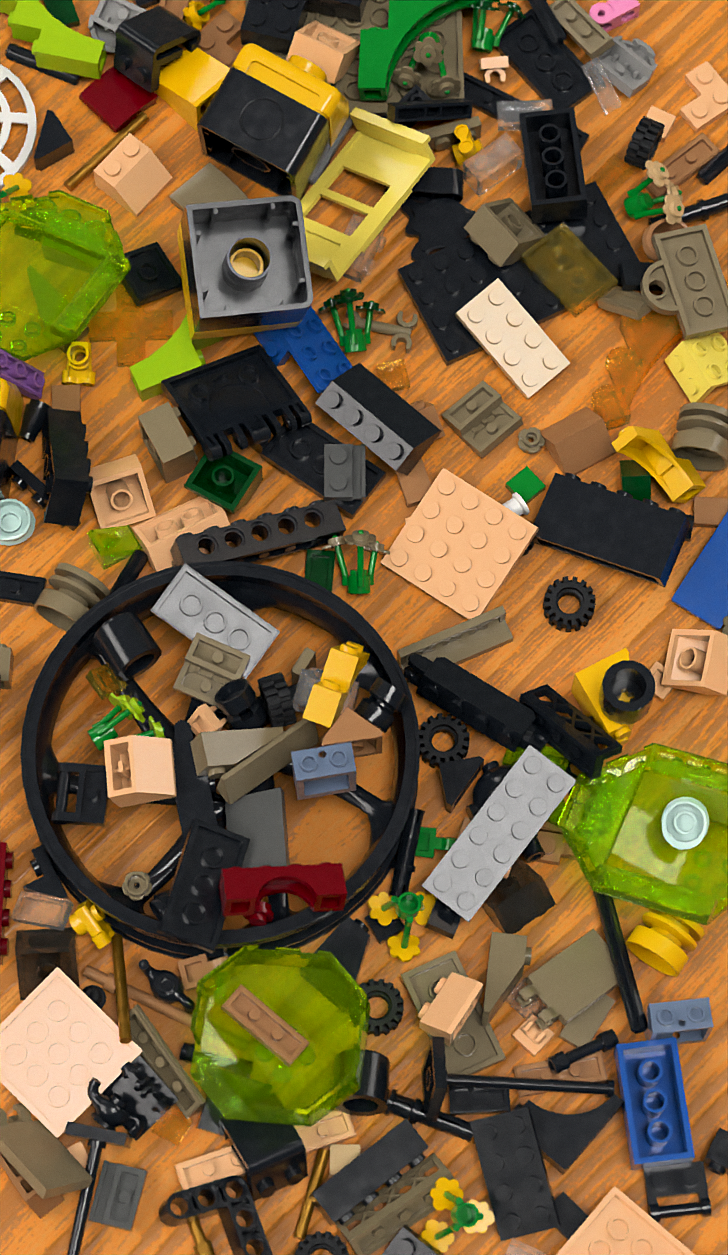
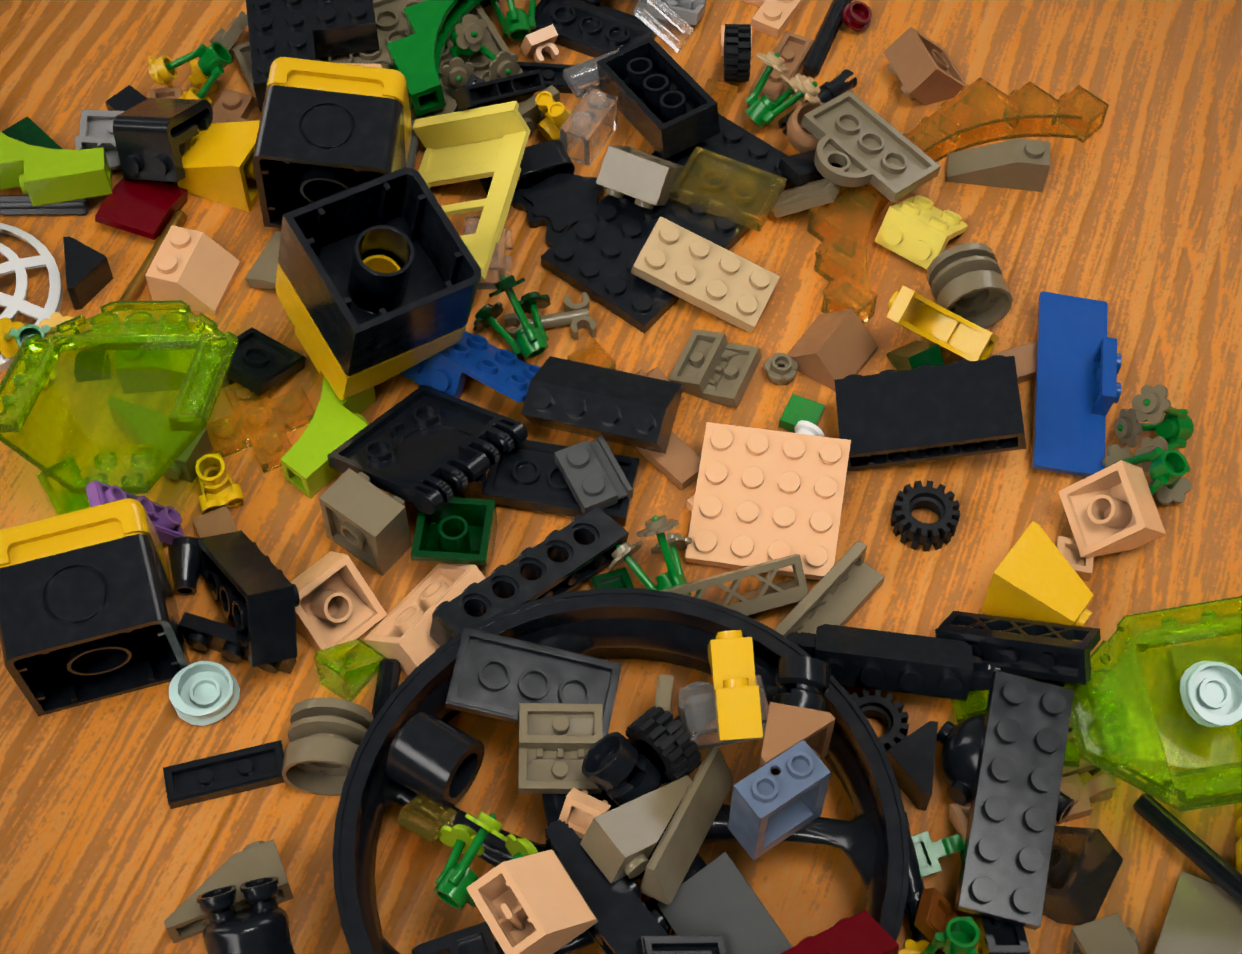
camera: 25 degrees left, 15 degrees down
(396, 614) = (755, 601): none -> dark tan fence
(408, 881) = (933, 913): none -> dark orange tile
(636, 682) = (1076, 559): black piece -> none

